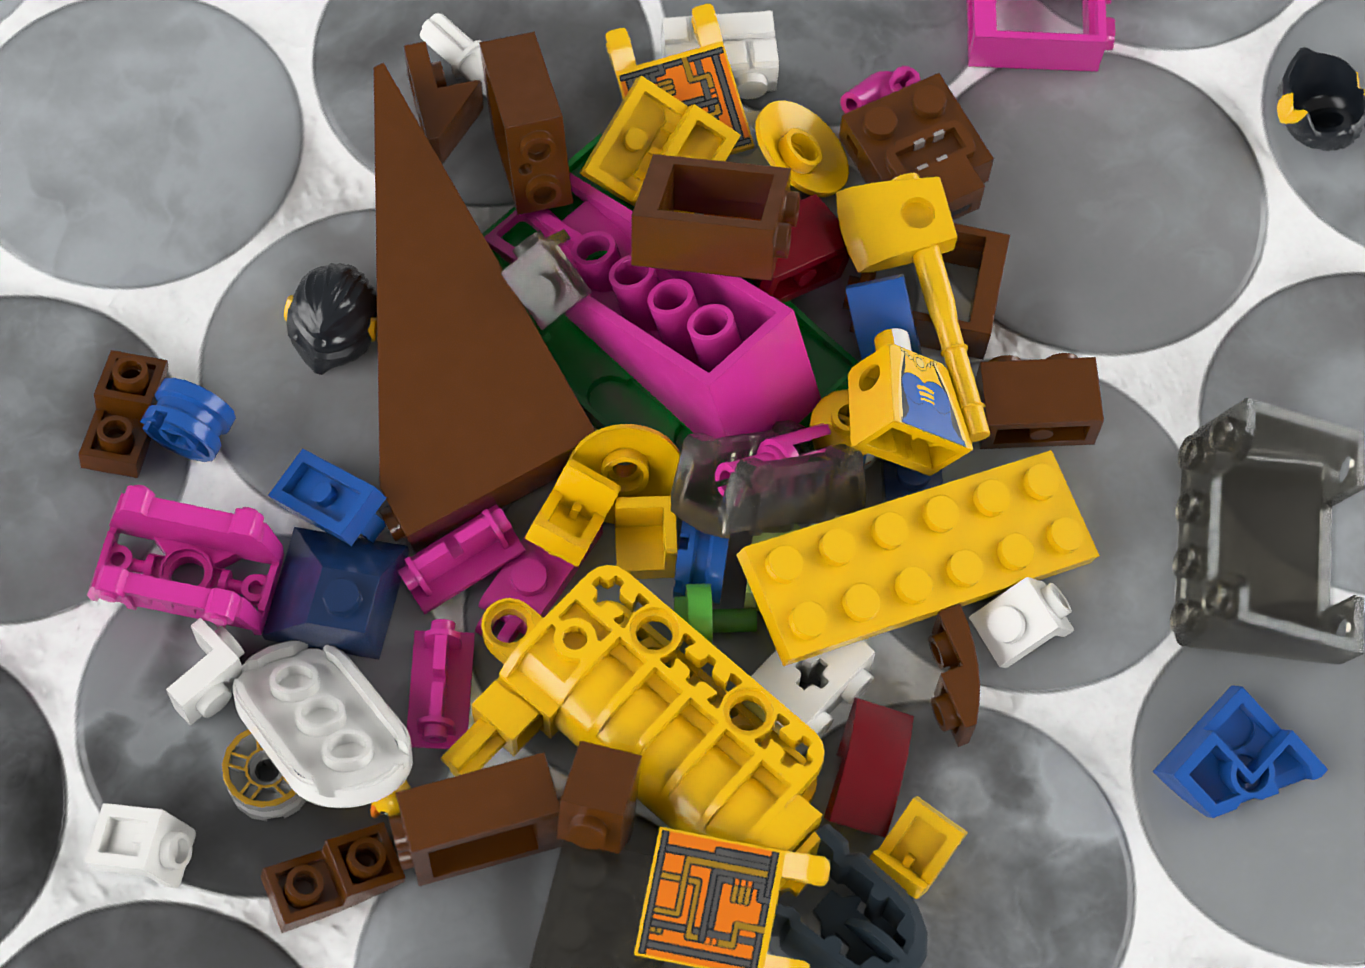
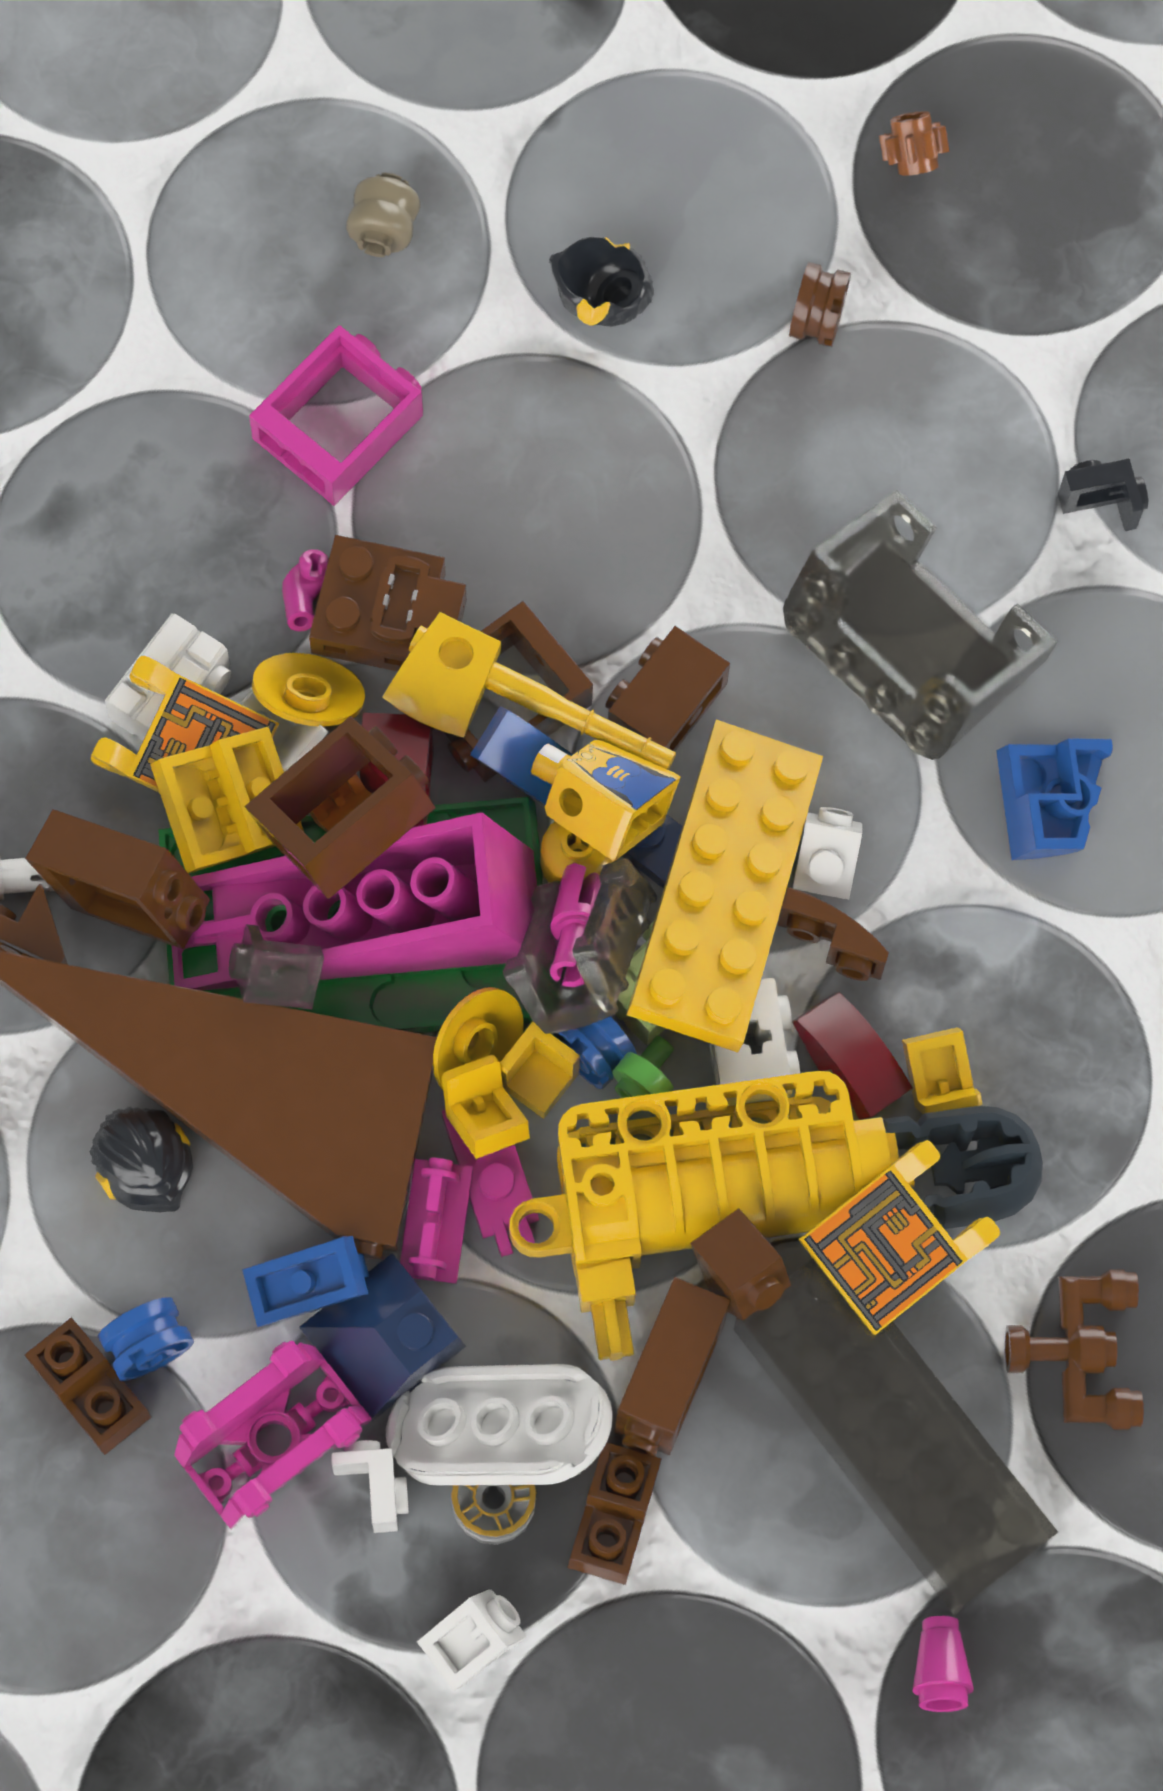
camera: 50 degrees left, 5 degrees up
(440, 685) = (527, 1316): dark pink hinge -> none

